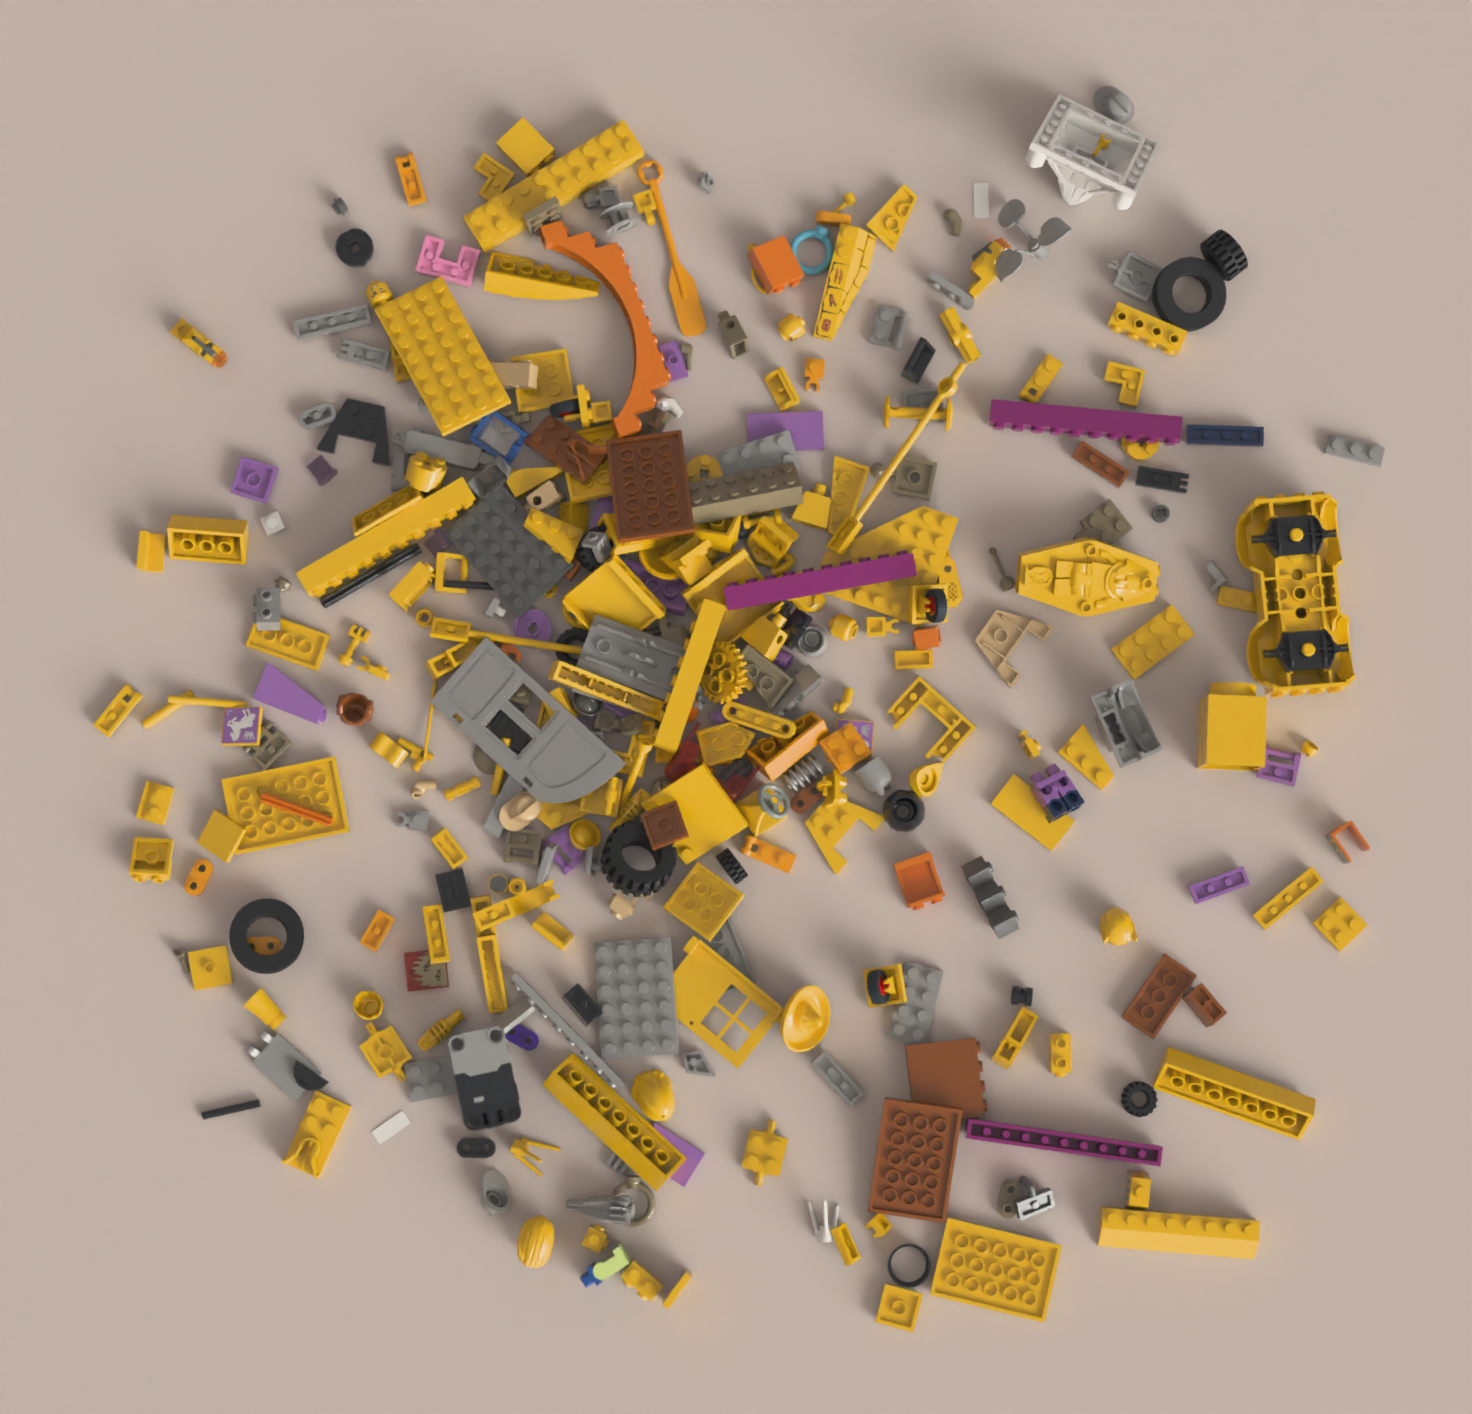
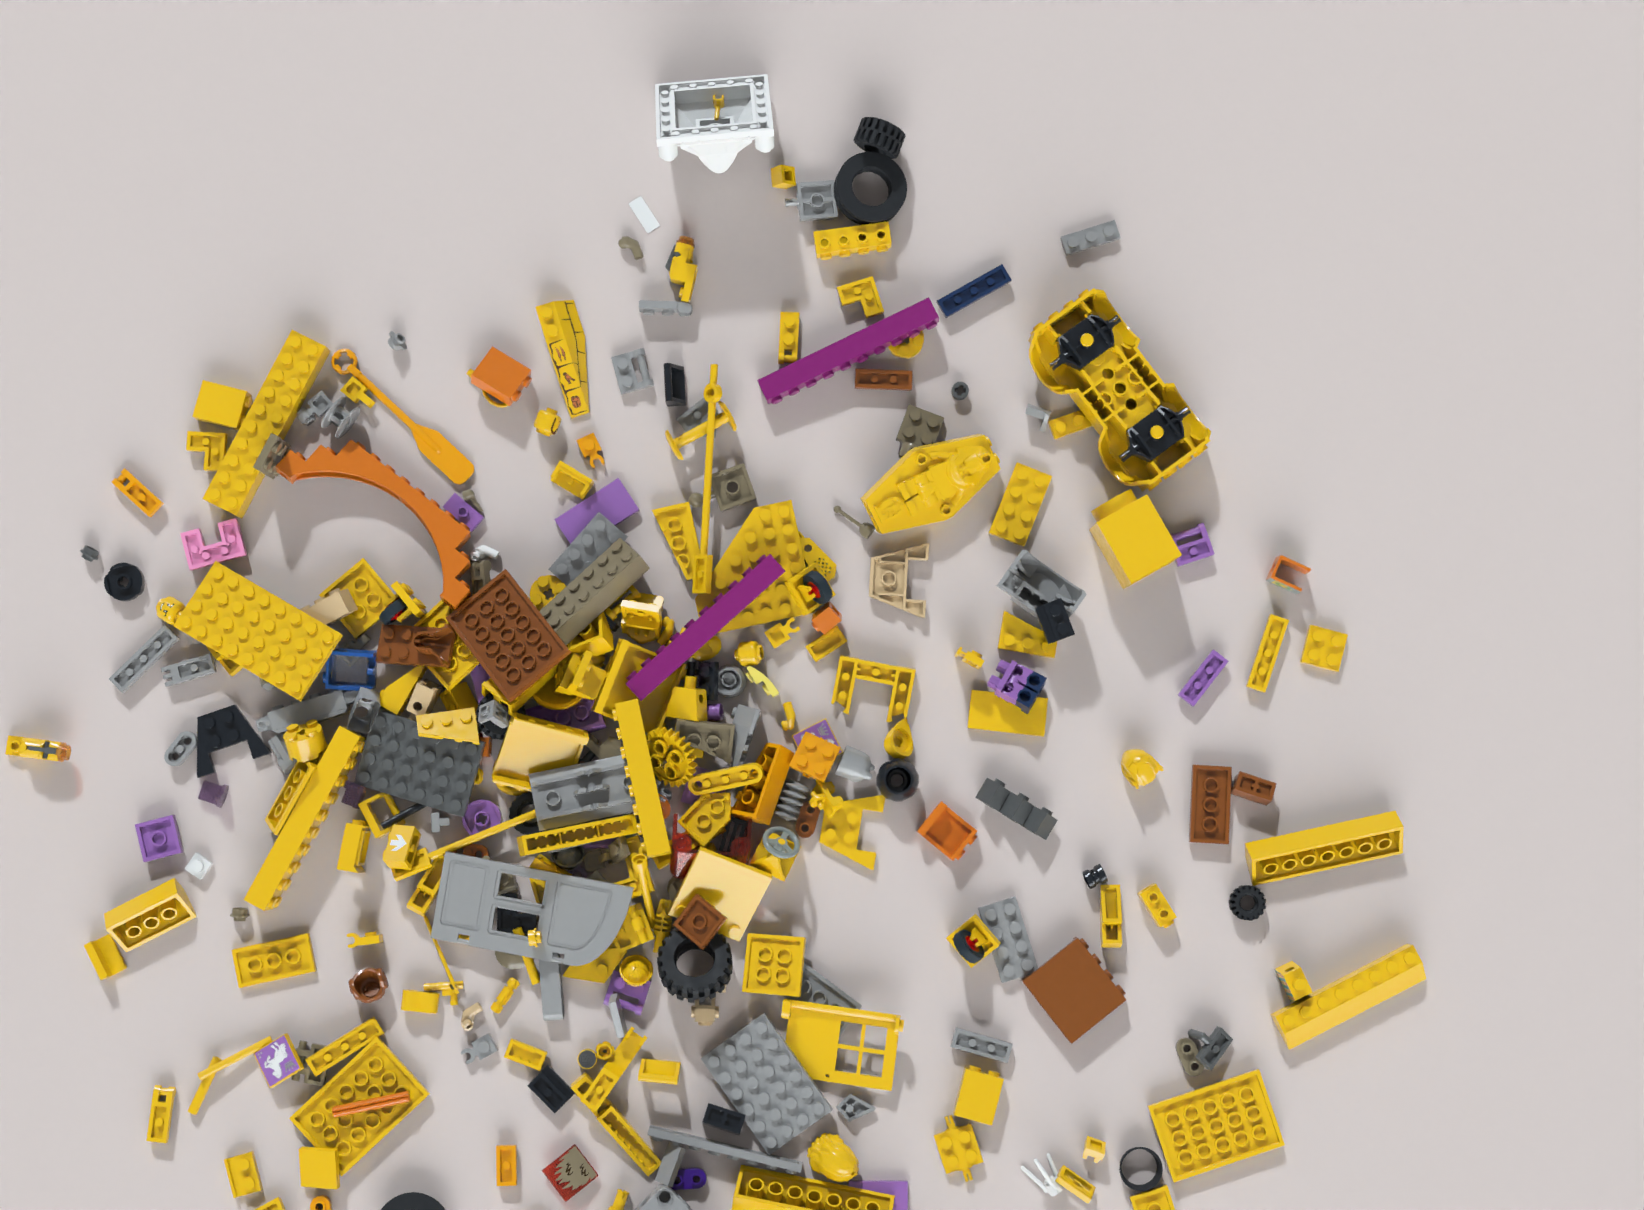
camera: 35 degrees left, 0 degrees up
(267, 609) = (239, 944): light grey brick -> none
(284, 694) = (300, 1009): medium lavender slope -> none
(303, 747) = (344, 1046): none -> yellow tile
(356, 637) = (333, 946): yellow hinge -> none
(371, 575) = (312, 859): black axle -> none
(422, 612) = (376, 868): yellow plate -> none
(435, 934) = (559, 1137): yellow plate -> none
(452, 610) = (401, 847): none -> yellow brick
(517, 753) = (534, 937): none -> yellow plate
(519, 811) = (567, 985): tan piece -> none
(524, 279) = (290, 519): yellow wedge -> none
(524, 840) = (586, 1007): dark tan plate -> none
(591, 861) = (656, 990): light grey piece -> none
(601, 412) = (427, 594): yellow panel -> none
(731, 866) = (779, 919): black tyre -> none
(733, 334) = (500, 458): dark tan torso -> none
(768, 854) = (804, 888): light orange plate -> none
(805, 1019) = (923, 1012): yellow hat -> none
(809, 1118) = (978, 1095): none -> yellow brick
(815, 508) = (662, 566): yellow torso -> none
(820, 234) = (526, 326): medium azure piece -> none
(832, 218) = (525, 307): light orange beam -> none
(838, 653) = (757, 677): none -> light yellow slope
(849, 201) = (531, 282): yellow hand -> none
(892, 217) = (576, 275): yellow wing -> none
(915, 1159) = (1090, 1075): dark orange plate -> none
(959, 335) = (696, 341): yellow piece -> none
(1051, 232) = (720, 206): light grey plant -> none
(1063, 1142) = (1206, 980): magenta brick -> none
(1113, 104) = (707, 65): light grey piece -> none
(1120, 239) = (783, 176): none -> yellow plate
(1120, 757) = (1054, 621): none -> black plate
(1161, 479) = (943, 361): black hinge -> none
(1309, 748) = (1207, 514): yellow hinge -> none

